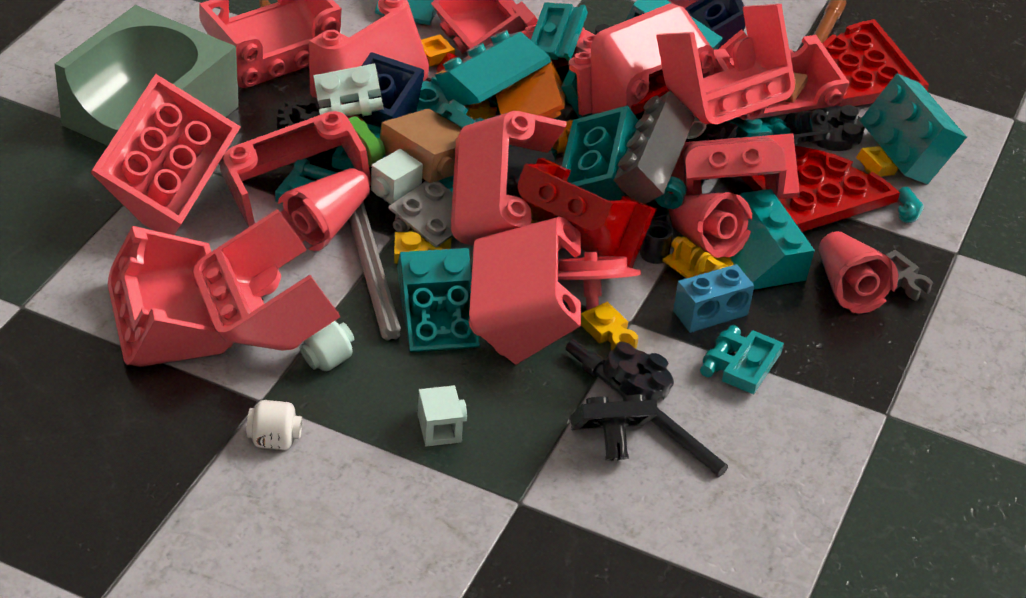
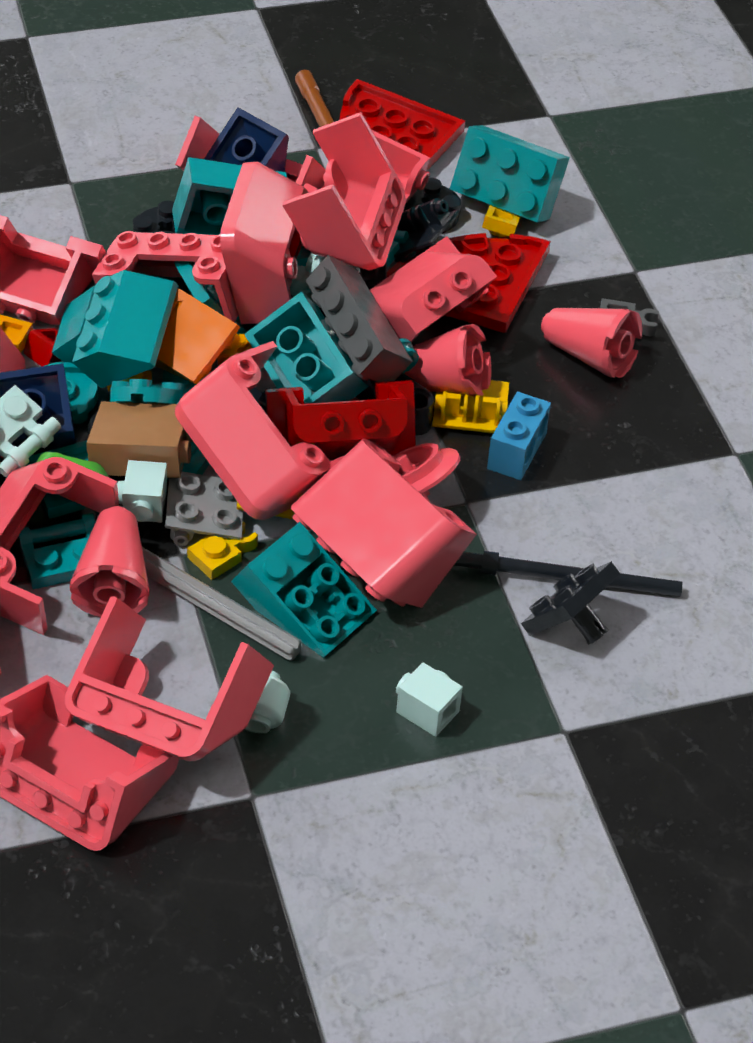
camera: 40 degrees left, 5 degrees up
(273, 425) = (303, 811): white head -> none
(559, 29) = (147, 246): teal plate -> none
(608, 324) = (475, 520): yellow plate -> none
(638, 372) = (539, 545): black plate -> none
(751, 362) = (603, 476): teal plate -> none
(776, 246) = (519, 354): teal slope -> none
(911, 207) = (565, 248): teal arm -> none

